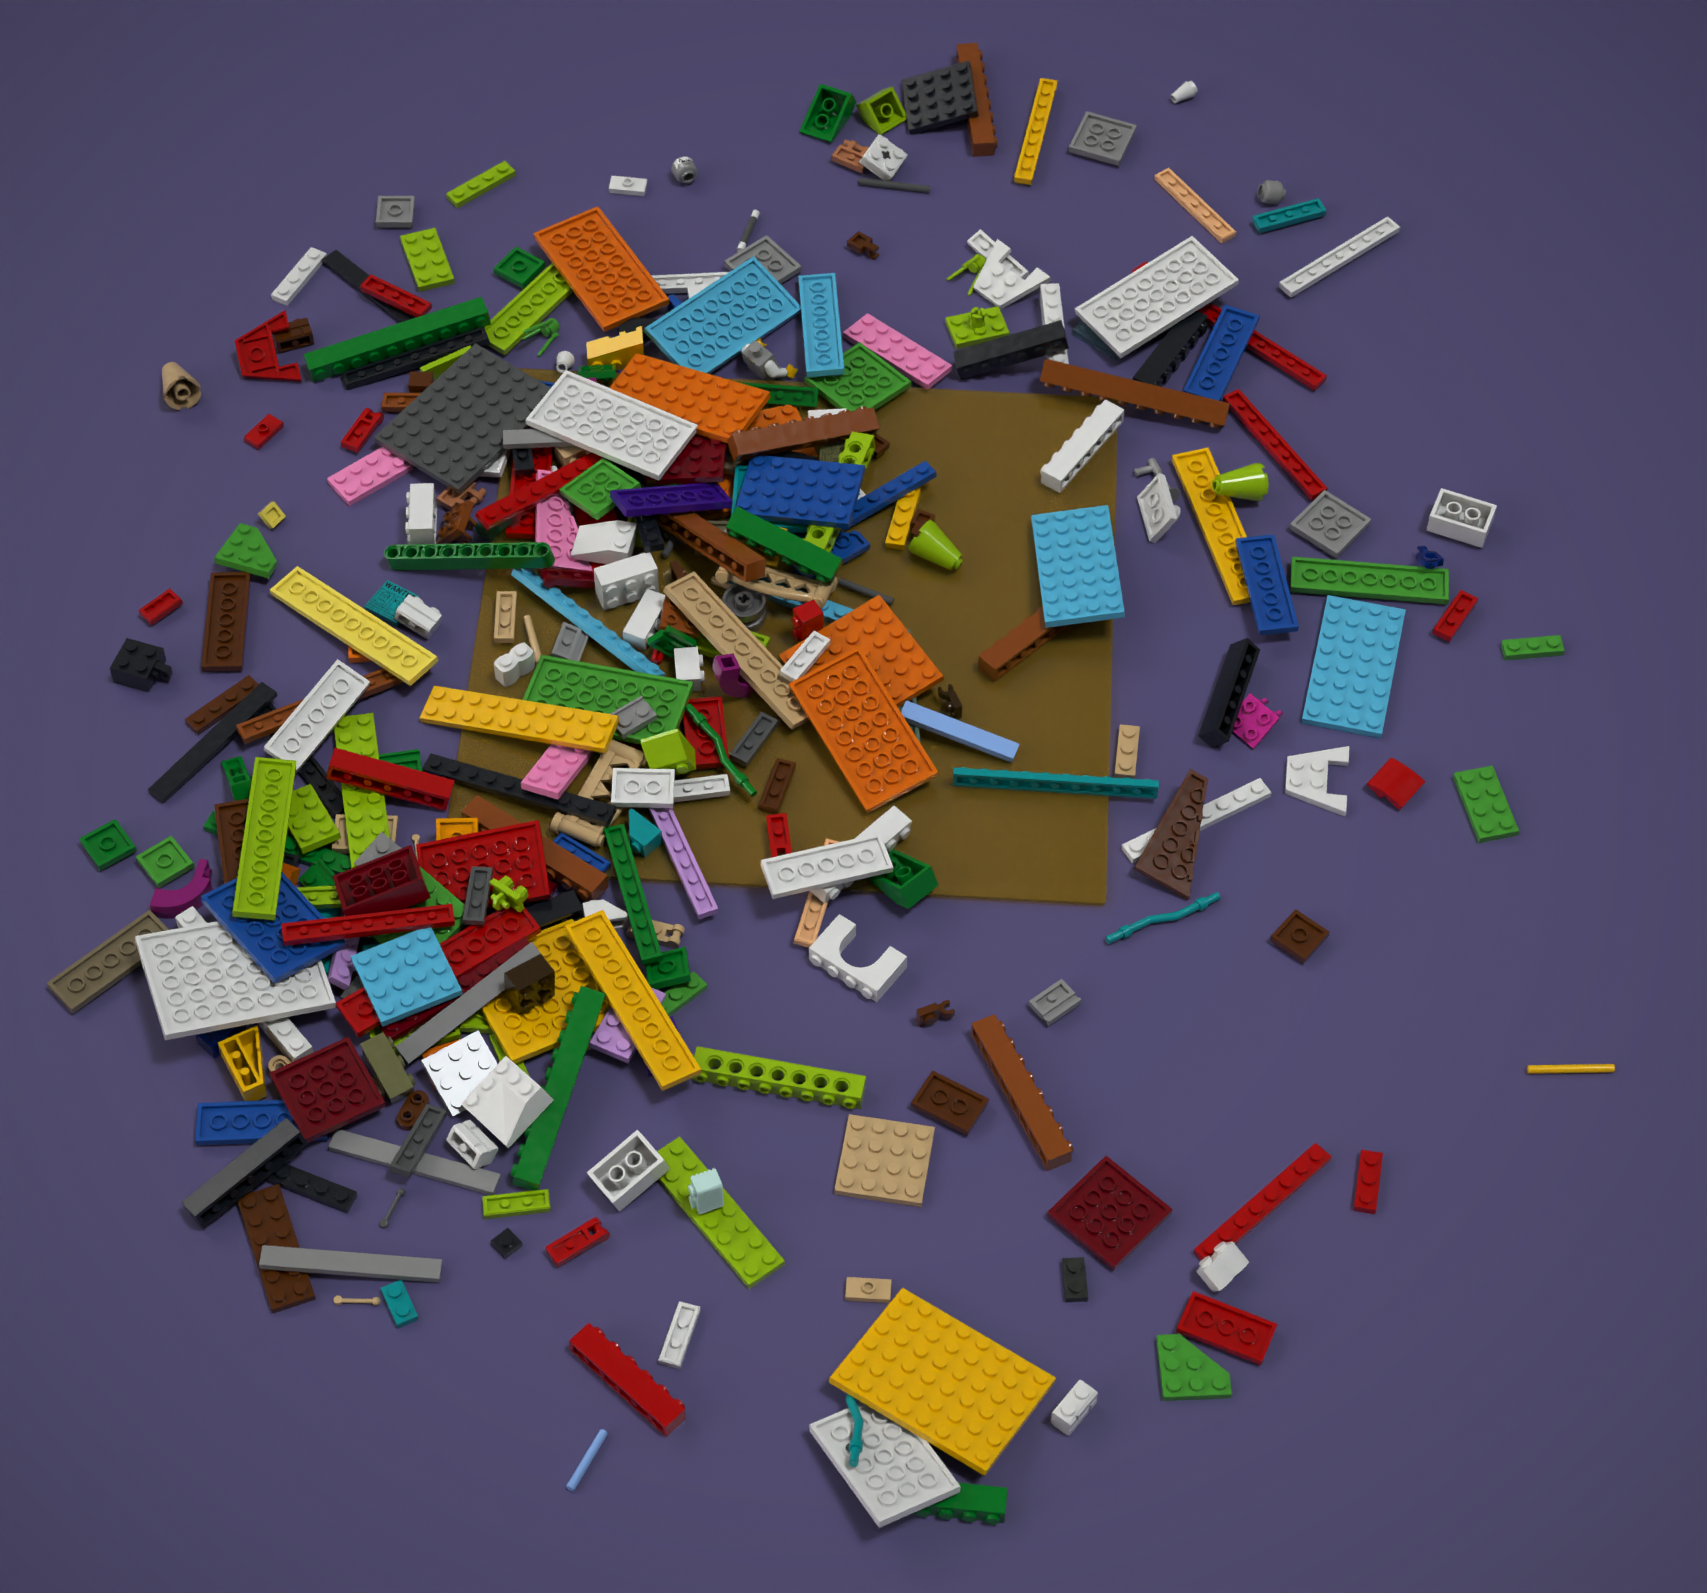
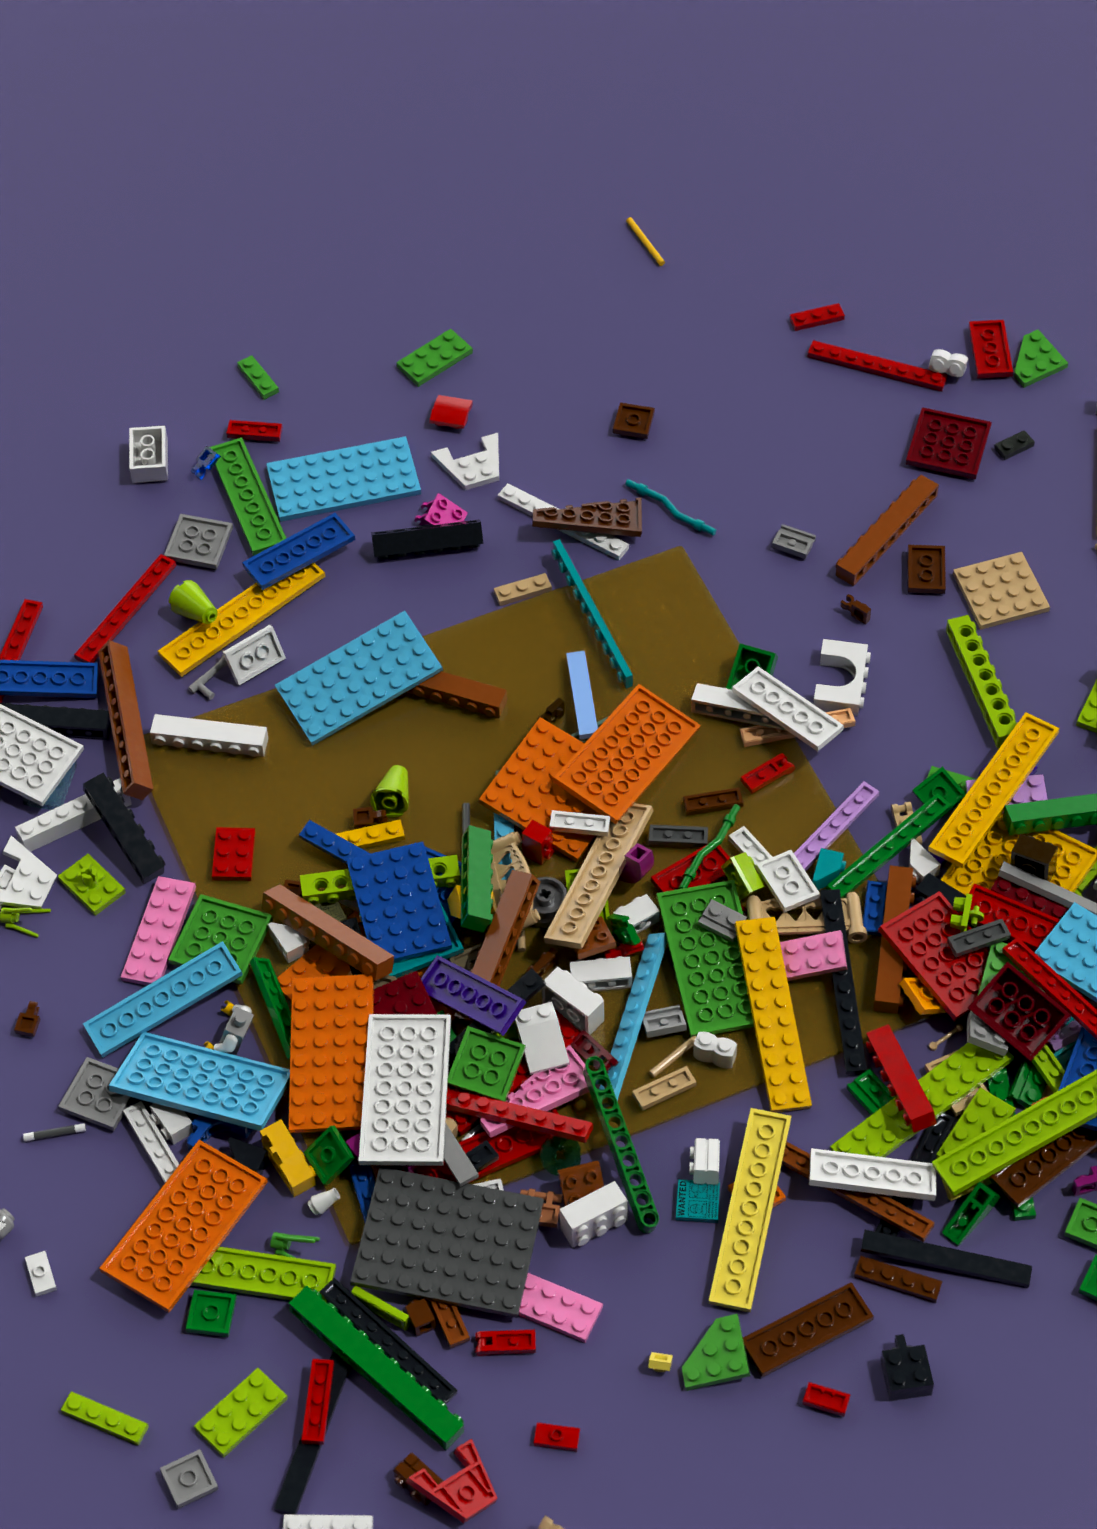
camera: 115 degrees left, 0 degrees up
(944, 423) = (233, 854): none -> red plate

